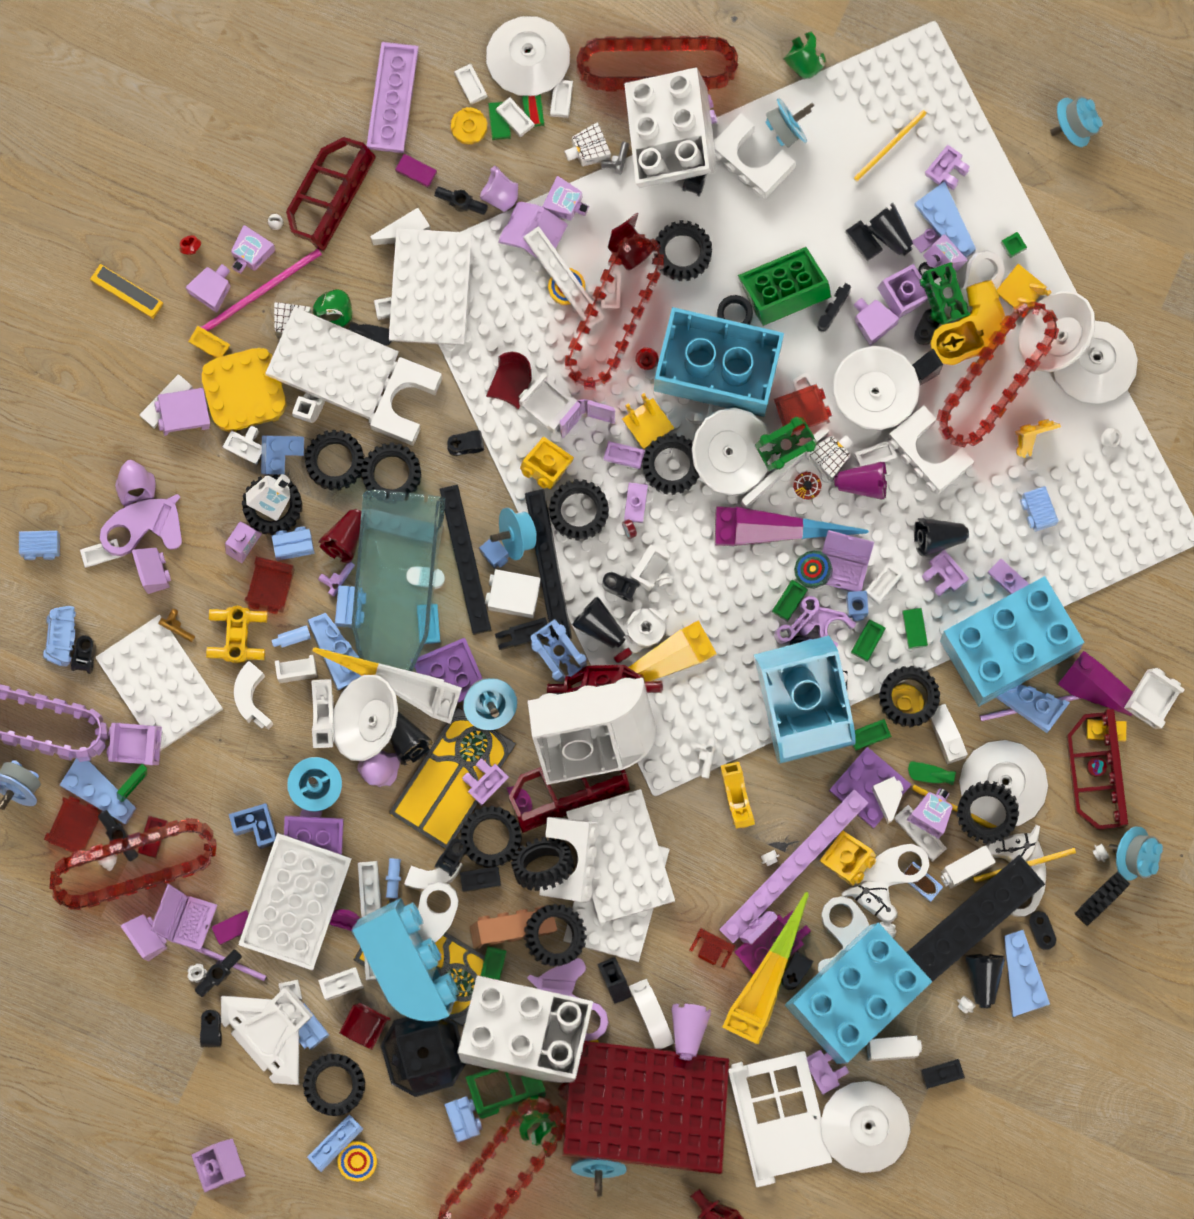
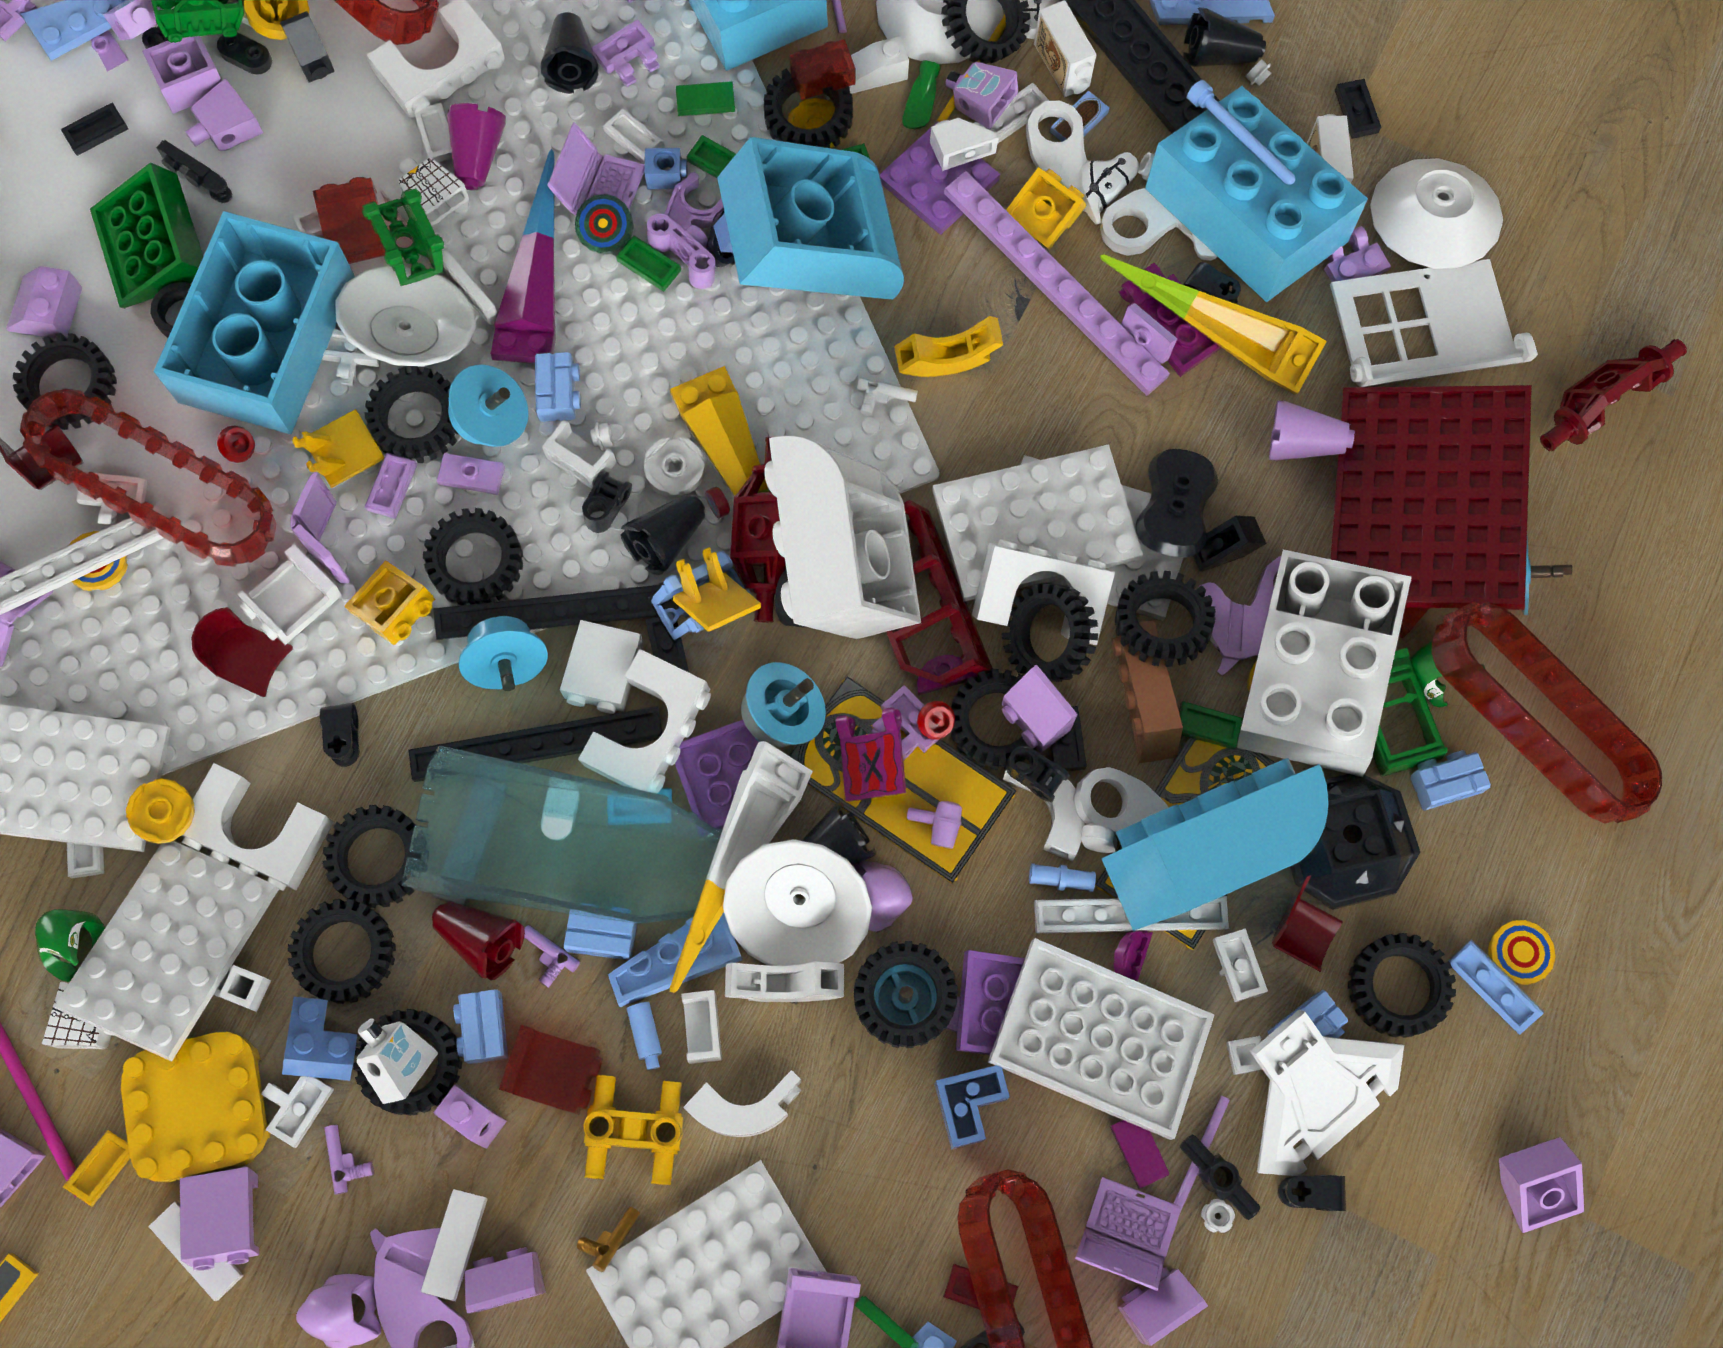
camera: 90 degrees left, 5 degrees down
(170, 540) = (454, 1245): none -> white tile
(215, 475) = (343, 1162): none -> lavender hose
(314, 805) = (909, 954): none -> black tyre
(372, 332) = (125, 876): black piece -> none
(410, 347) = (160, 811): none -> yellow tile
(415, 895) = (1099, 838): none -> white tile
(423, 805) = (944, 821): none -> lavender piece
(460, 759) = (872, 761): none -> flag
(484, 796) = (936, 720): none -> red hat
(489, 856) = (1038, 710): none -> lavender slope
(492, 642) = (645, 766): none -> white arch
(494, 553) = (531, 694): medium blue brick -> none
(550, 656) = (715, 601): none -> yellow plate
(624, 943) = (1174, 514): none -> black plate
(629, 529) = (513, 483): dark red tile -> none
(651, 1014) = (1286, 483): white arch -> none
(673, 508) = (487, 406): none -> medium azure piece
(696, 549) = (556, 386): none -> light blue brick
(712, 947) = (1182, 395): clear red panel -> none
(735, 229) = (45, 303): none -> lavender slope
(770, 858) = (1041, 315): white plate -> none
(807, 485) = (471, 231): clear red piece -> none
(880, 370) = (326, 95): white dish -> none
(890, 230) = (82, 84): black cone -> none
(915, 950) = (1202, 96): none -> light blue piece
(932, 703) = (822, 68): none -> clear red brick

